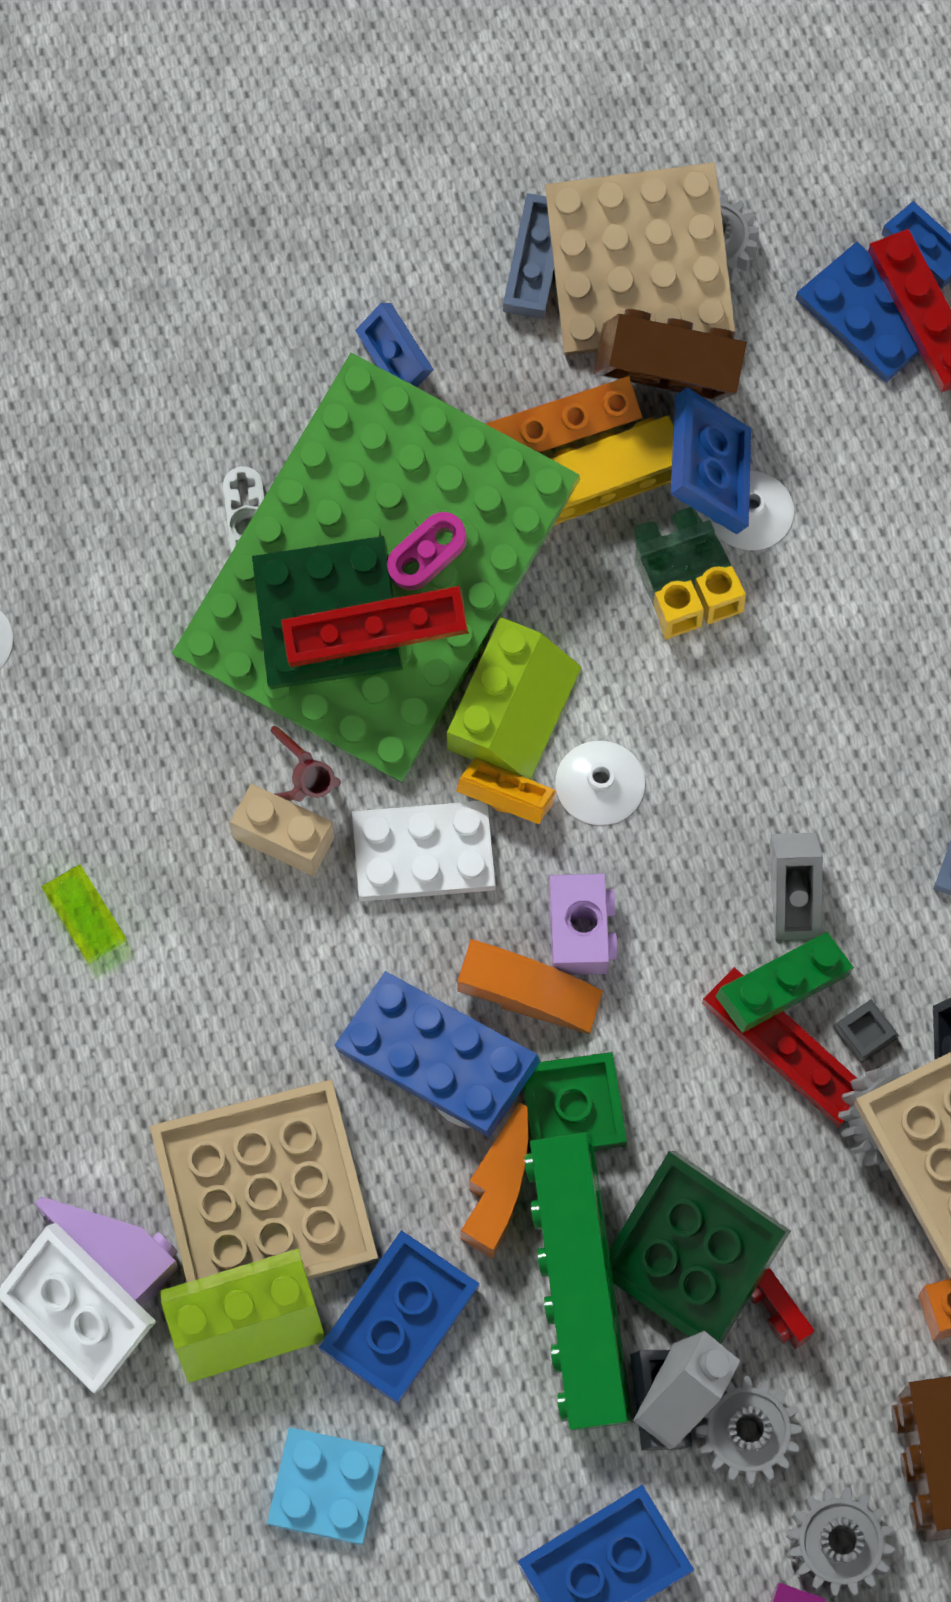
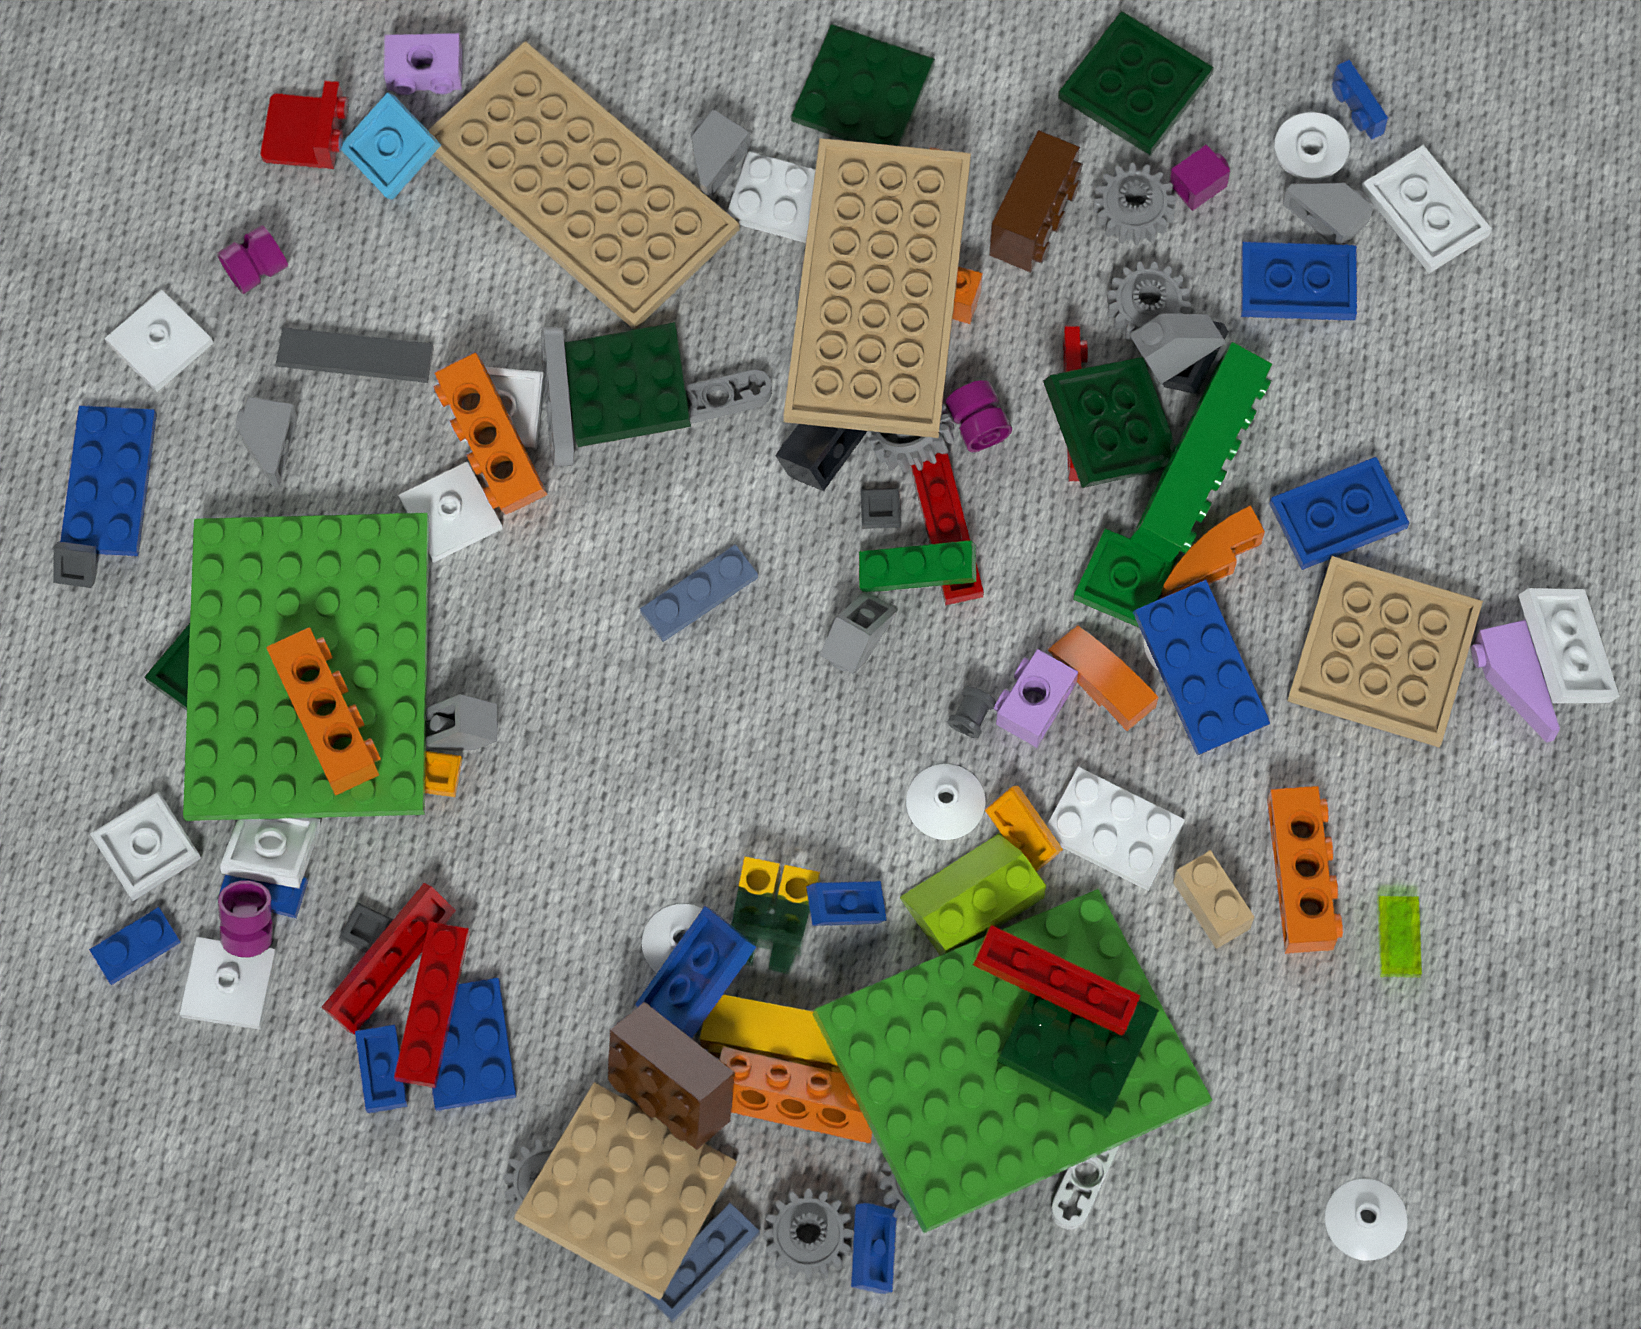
camera: 145 degrees left, 0 degrees up
(181, 854) = (1303, 931): none -> orange brick
(242, 1315) = (1451, 575): lime slope -> none
(309, 776) = (1173, 907): dark red plant -> none
(325, 1486) = (1456, 440): medium azure plate -> none
(424, 549) = (972, 1020): dark pink plate -> none
(462, 347) = (814, 1256): none -> light grey gear
(623, 615) = (846, 903): none -> blue plate
(632, 874) = (972, 712): none -> dark grey bush
(835, 1182) = (977, 413): none -> magenta wheel

